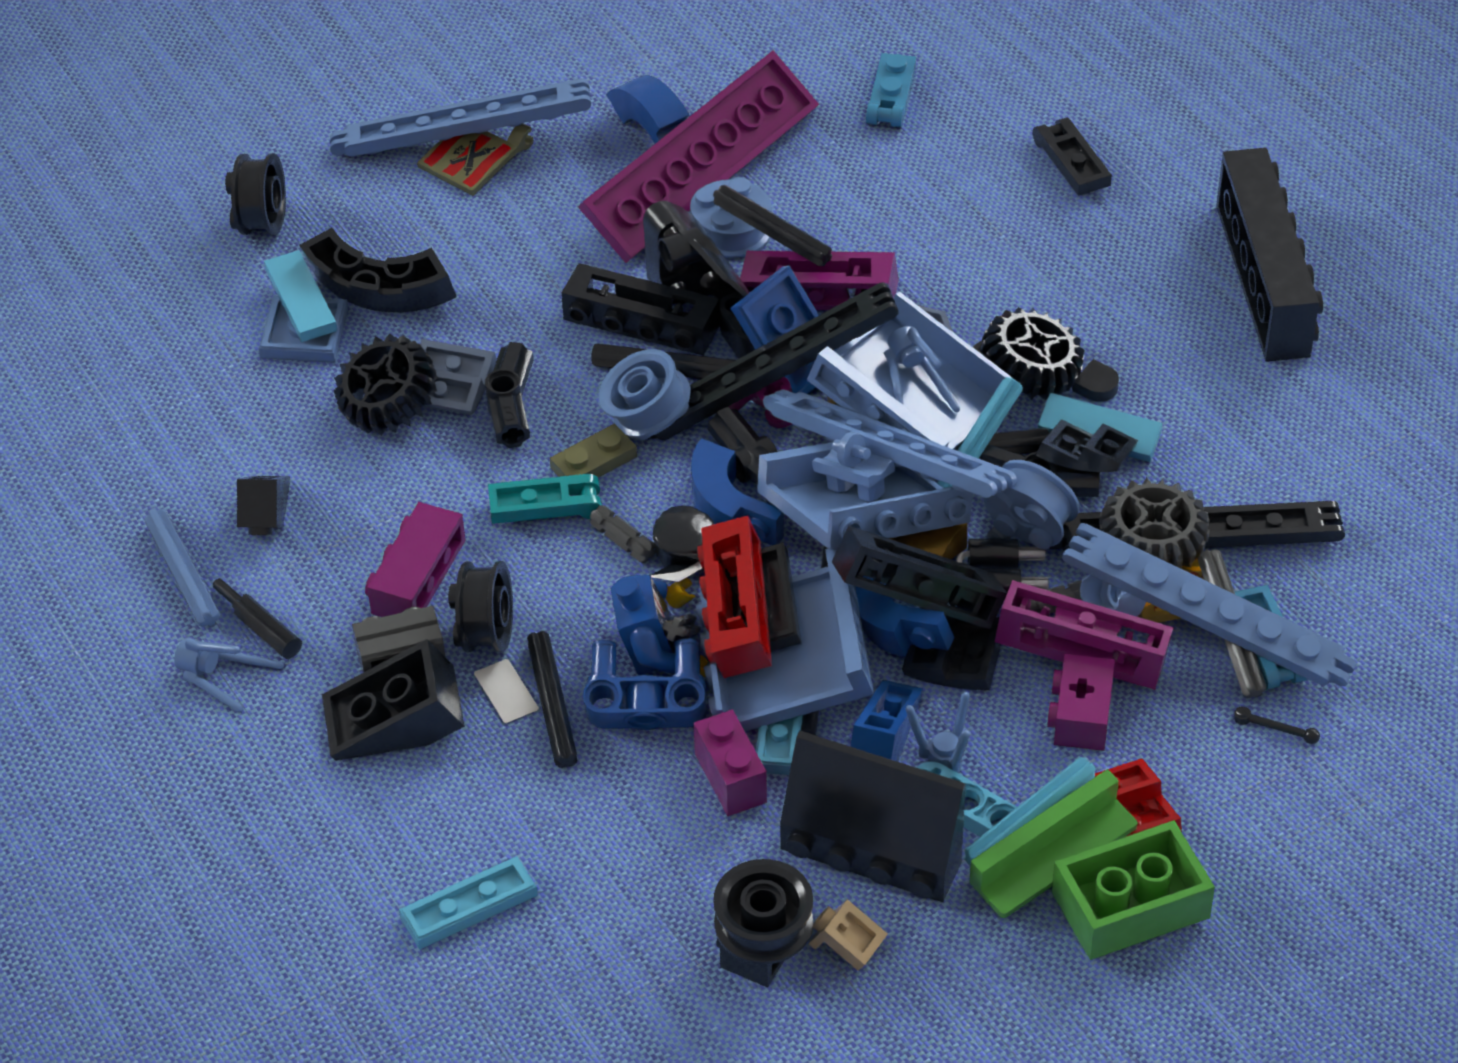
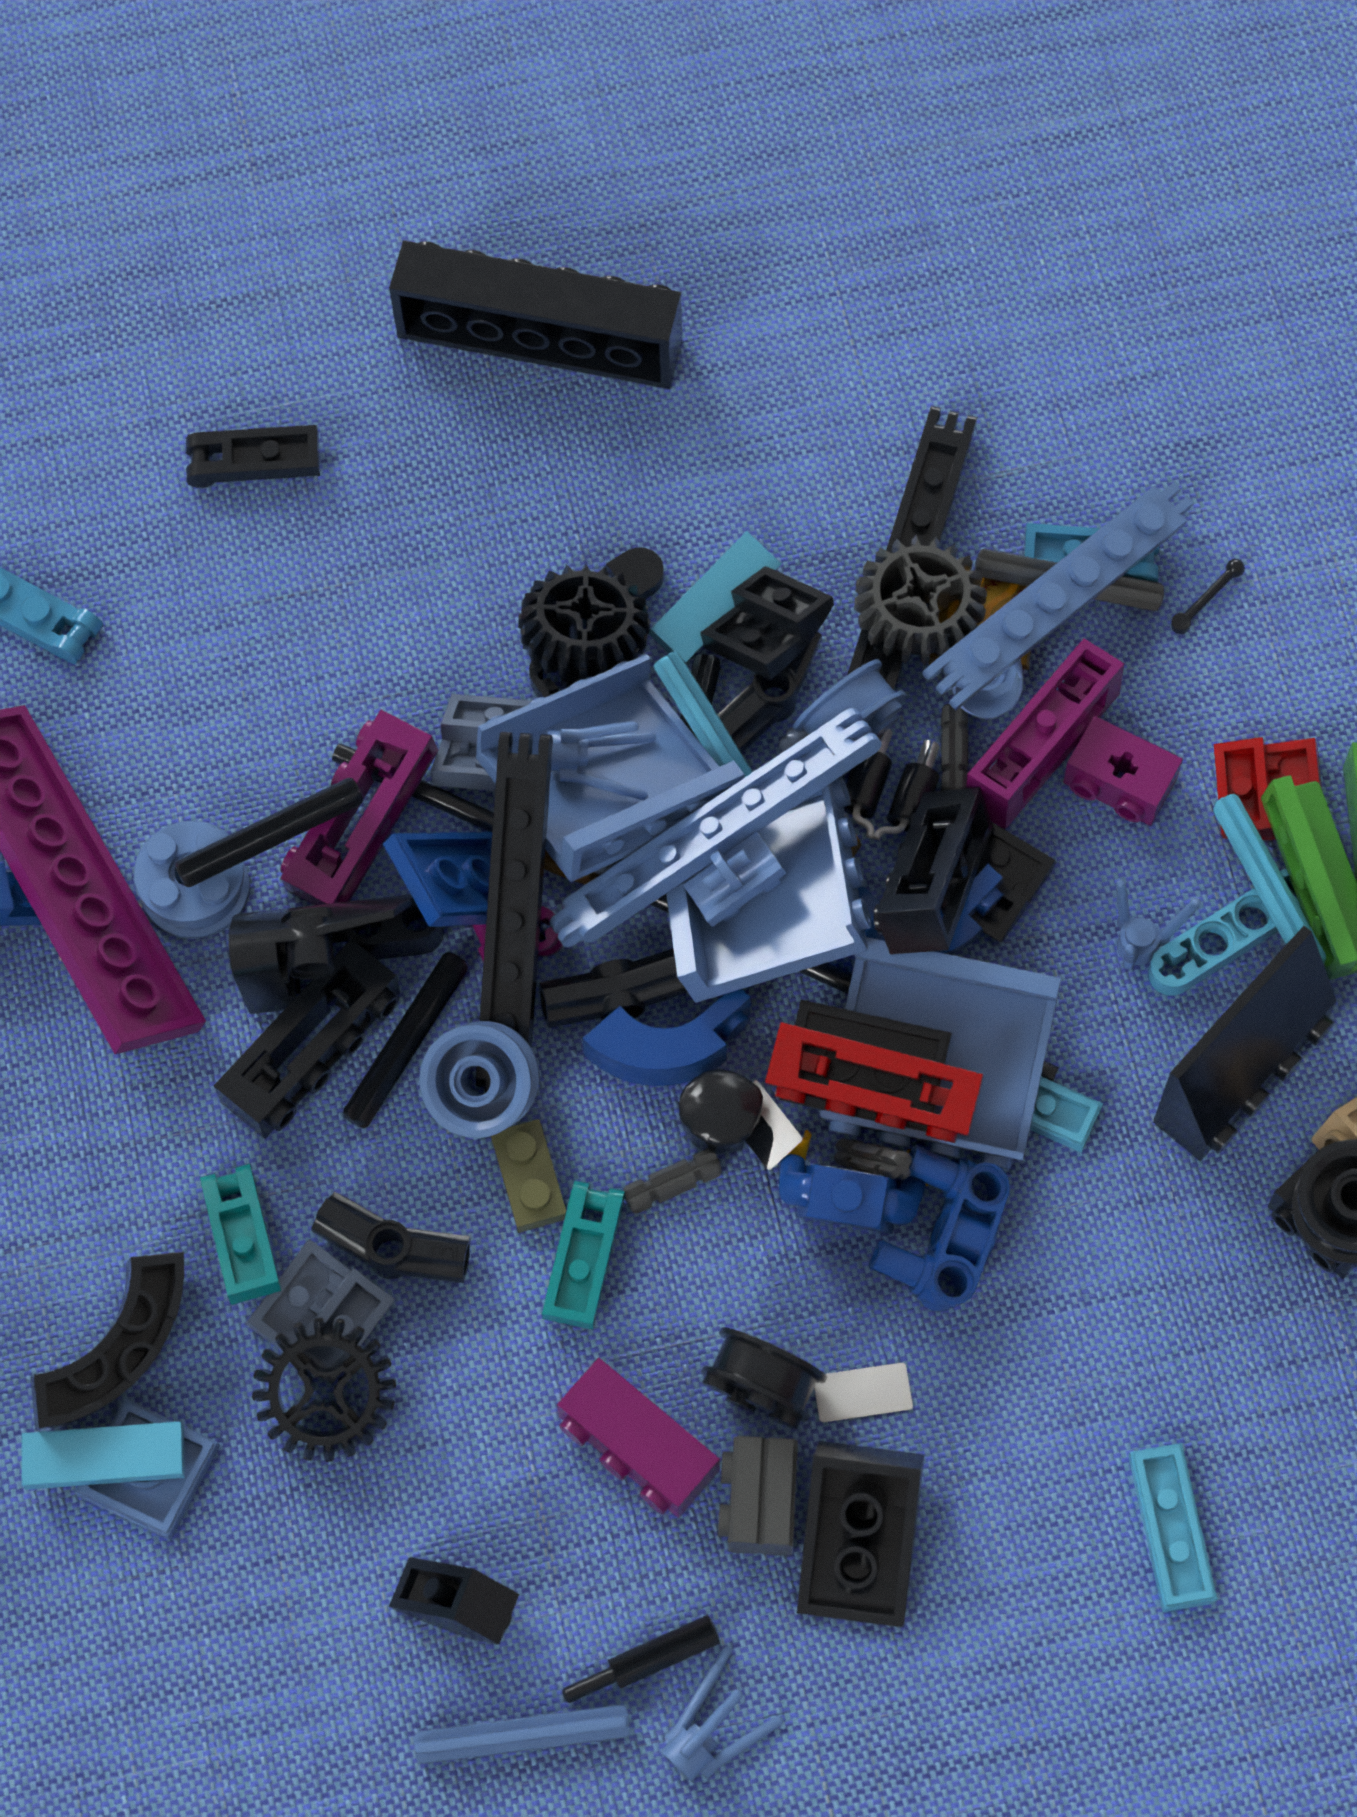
camera: 70 degrees left, 20 degrees up
(482, 315) = (240, 1235): none -> teal plate
(552, 699) = (903, 1342): black axle -> none
(730, 762) = (1084, 1171): magenta brick -> none
(884, 721) = (1093, 991): blue slope -> none

